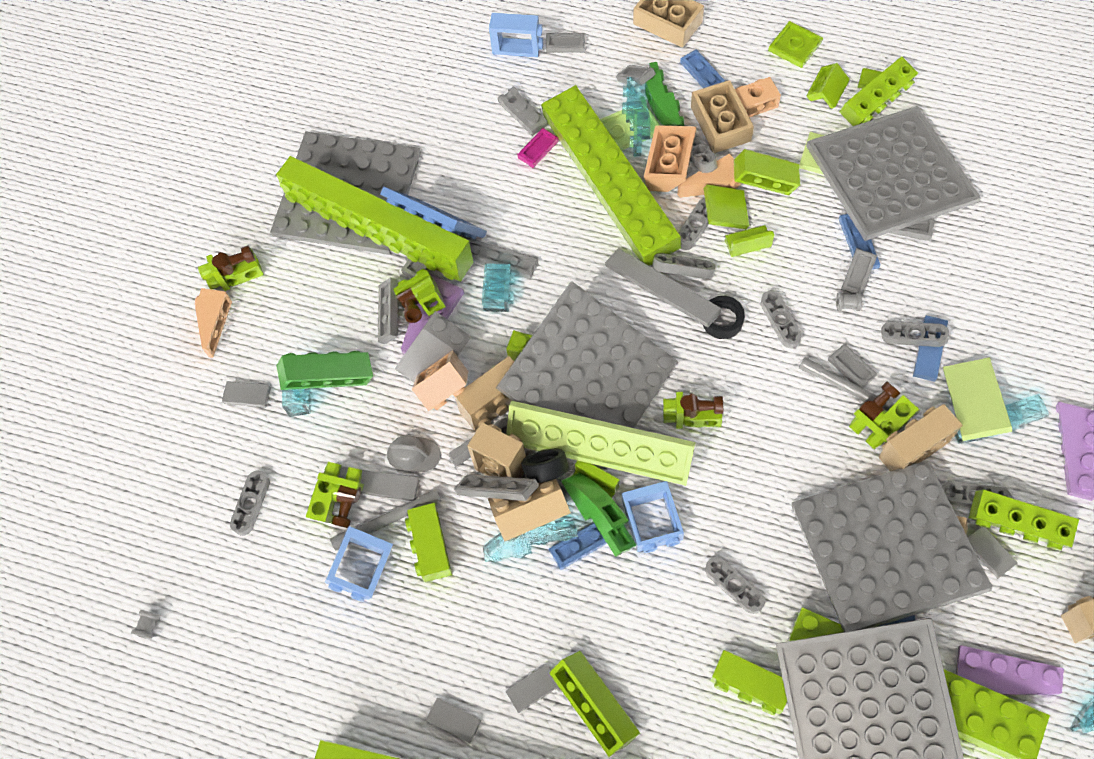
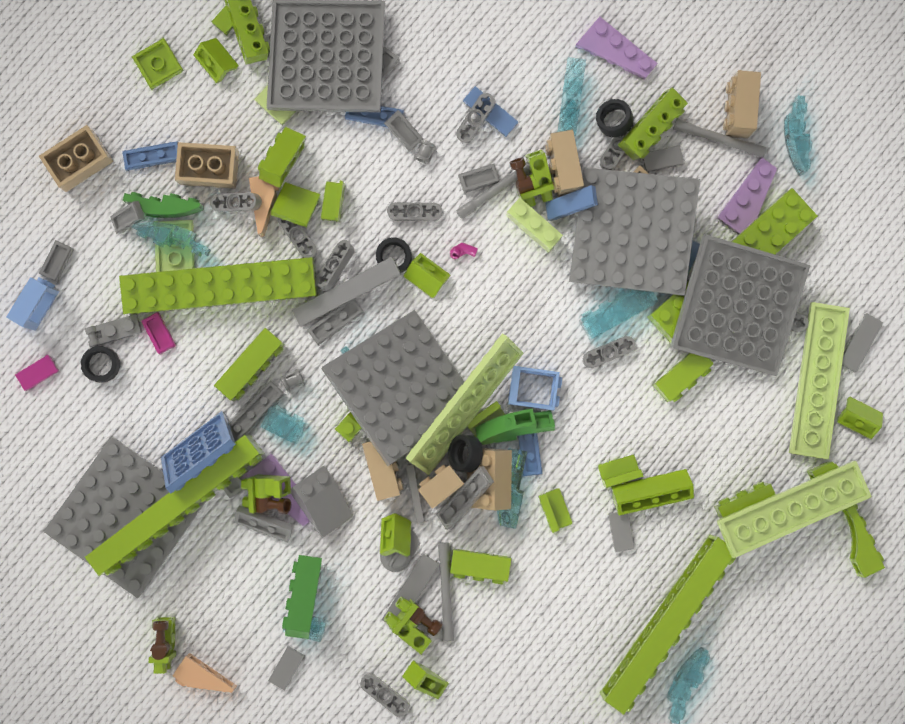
camera: 75 degrees left, 20 degrees up
(279, 537) = (425, 680): none -> lime slope
(369, 542) = (452, 626): light blue window -> none
(426, 439) = (395, 535): none -> lime panel
(440, 381) = (358, 506): light nougat brick -> none
(453, 69) = (37, 372): none -> dark pink tile
(453, 720) = (619, 597): light grey tile -> none
(481, 100) = (85, 364): none -> black tyre
(524, 600) = (555, 510): none -> lime panel
(544, 231) = (249, 365): none -> lime brick
(546, 277) = (292, 380): none -> light grey bush
(602, 656) = (619, 471): none -> lime panel
(627, 293) = (335, 321): none -> light grey tile
(669, 157) = (229, 228): light nougat slope -> none
(693, 412) = (465, 318): lime hips -> none
(720, 357) = (426, 275): none -> lime panel
(759, 96) = (198, 115): light nougat brick -> none
(766, 381) = (462, 249): none -> dark pink arm
(785, 572) = (616, 312): none -> clear light blue brick
(833, 441) = (534, 225): none -> yellowish green brick
(880, 465) = (571, 203): none -> medium blue tile
(977, 399) = (551, 104): yellowish green tile -> none
(1007, 463) = (605, 109): none -> black tyre
(1065, 648) = (748, 147): none -> light grey piece

